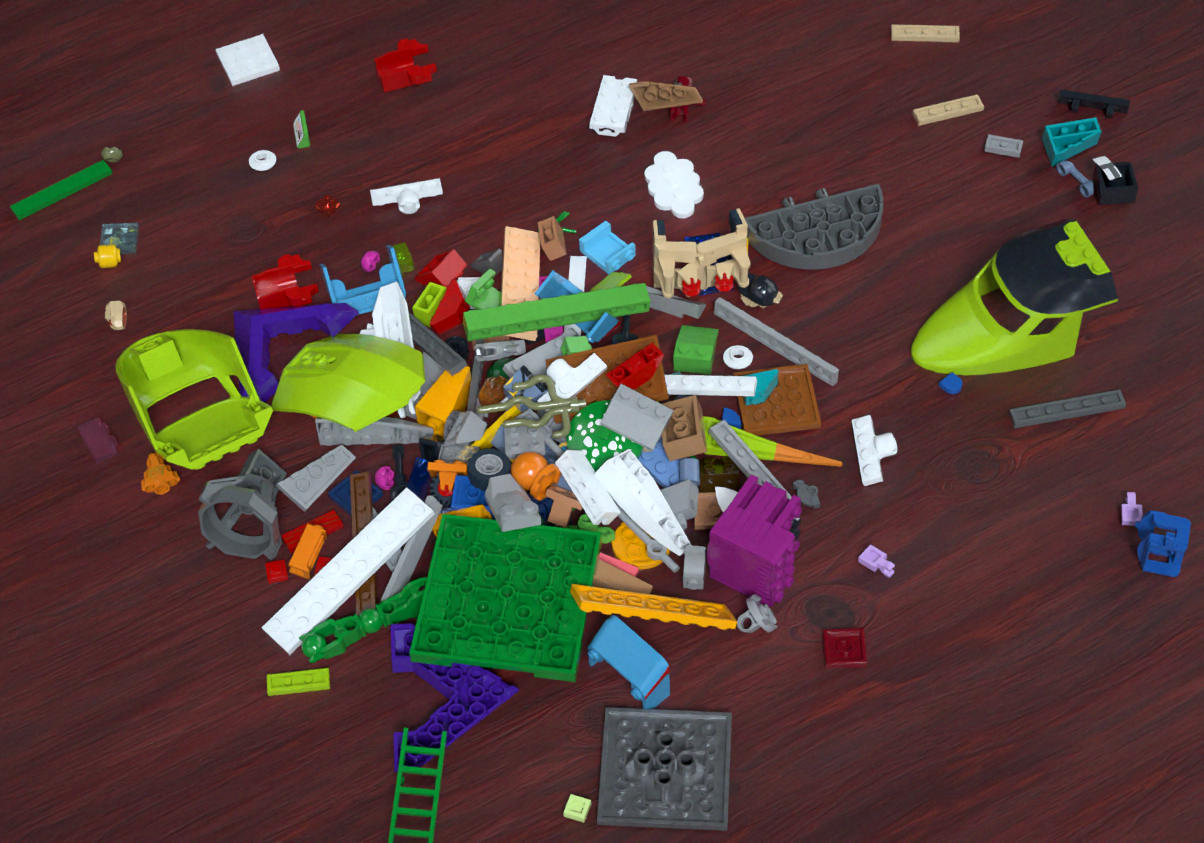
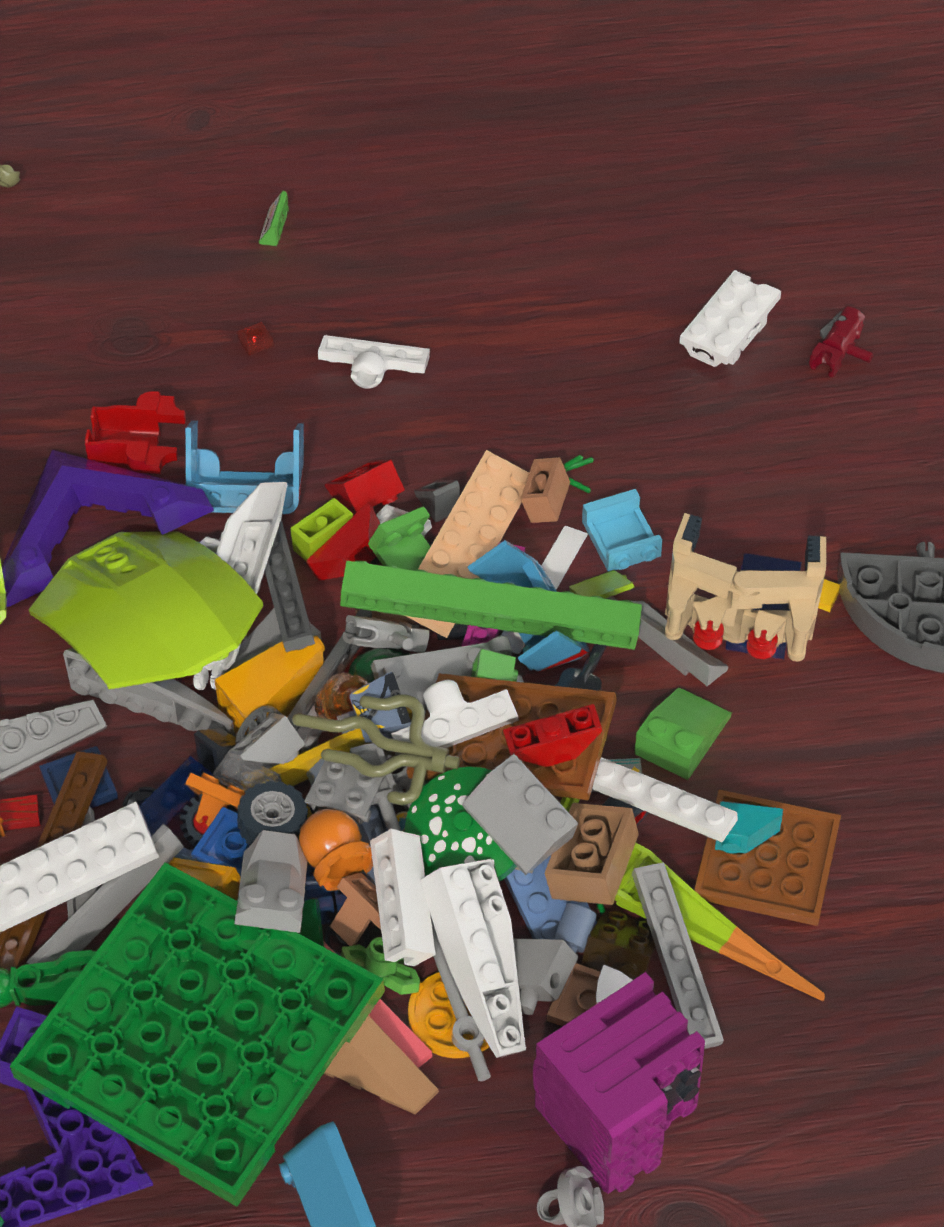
camera: 20 degrees right, 0 degrees up
(247, 59) = (253, 98): white plate -> none
(268, 163) = (201, 253): white piece -> none
(369, 260) = (272, 438): dark pink plate -> none
(384, 477) = (131, 772): dark pink plate -> none
(397, 67) = (451, 171): red piece -> none
(398, 455) = (170, 742): black bar -> none
(403, 257) = (320, 448): clear neon green slope -> none
(459, 345) = (319, 613): black wheel -> none
(652, 606) = (409, 1129): light orange plate -> none
(662, 95) = (807, 327): medium nougat wedge -> none
(674, 184) = (767, 467): white plate -> none
(694, 567) = (511, 1086): light grey arch -> none
(731, 418) = (684, 861): blue tile -> none
(737, 363) = (736, 777): white piece -> none
(760, 292) = (819, 675): black hair -> none
(776, 341) = (809, 763): light grey plate -> none
(807, 493) = (745, 1027): dark grey piece -> none
(871, 449) = (880, 991): white plate -> none
(874, 559) = (805, 1177): lavender plate -> none

